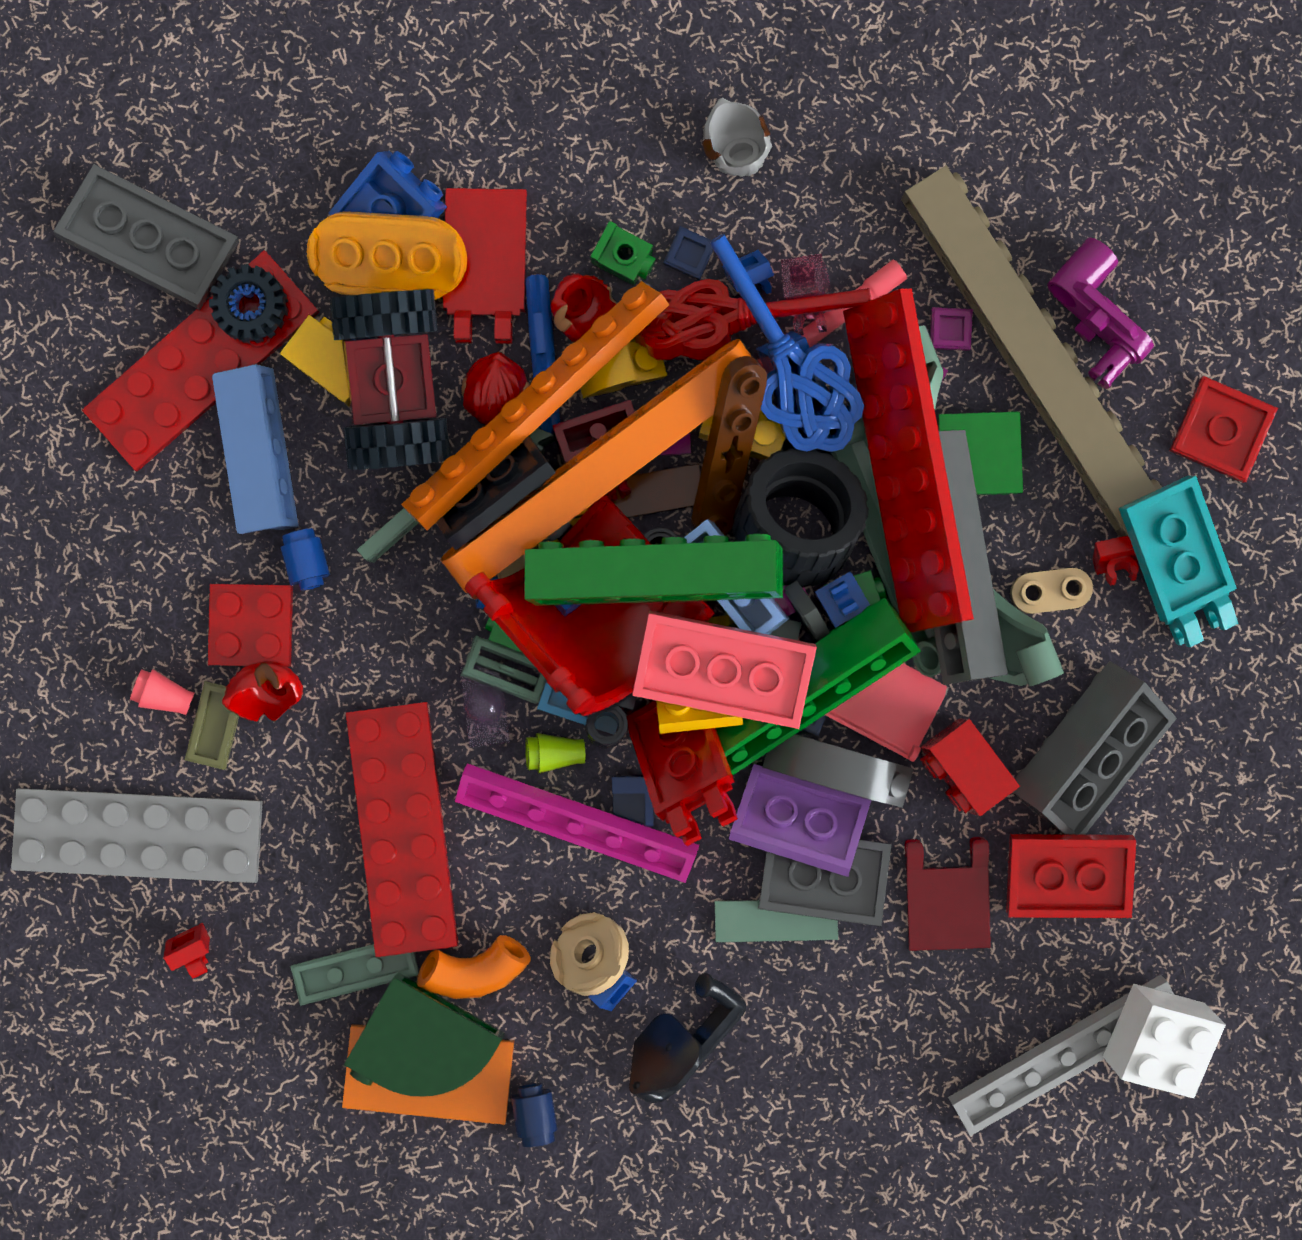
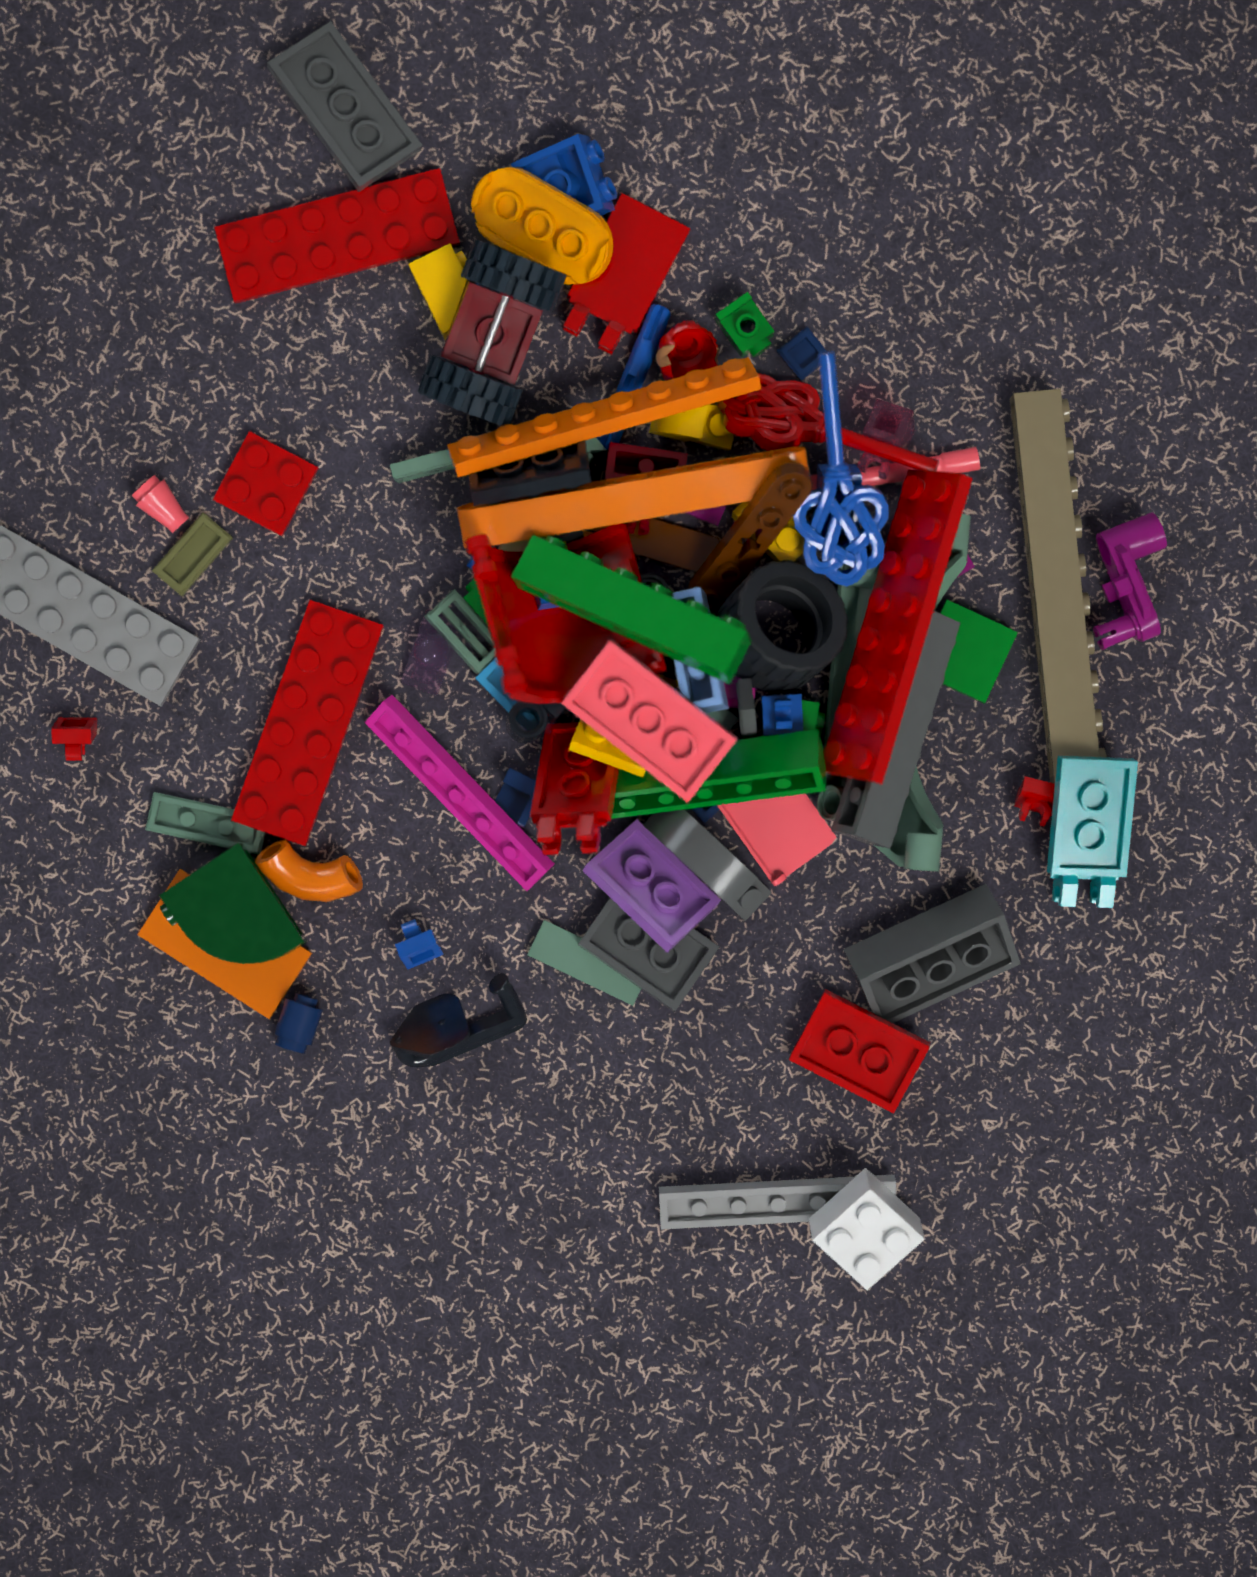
camera: 25 degrees right, 0 degrees up
(248, 283) = (412, 190): black bush -> none
(255, 449) = (345, 335): medium blue panel -> none
(262, 690) = (248, 544): red hair -> none
(304, 559) = (340, 450): blue brick -> none
(491, 385) = (575, 381): red hair -> none
(553, 752) = (468, 722): lime cone -> none
(606, 965) = (417, 927): tan tile -> none
(736, 138) = (892, 275): light grey hair -> none
(757, 268) = (852, 396): blue tile -> none
(948, 903) = (743, 1023): dark red flag -> none
(951, 328) = (995, 532): magenta tile -> none
(968, 767) = (817, 912): red brick -> none
(1051, 590) = (968, 800): tan plate -> none
(1223, 429) = (1187, 736): red tile -> none

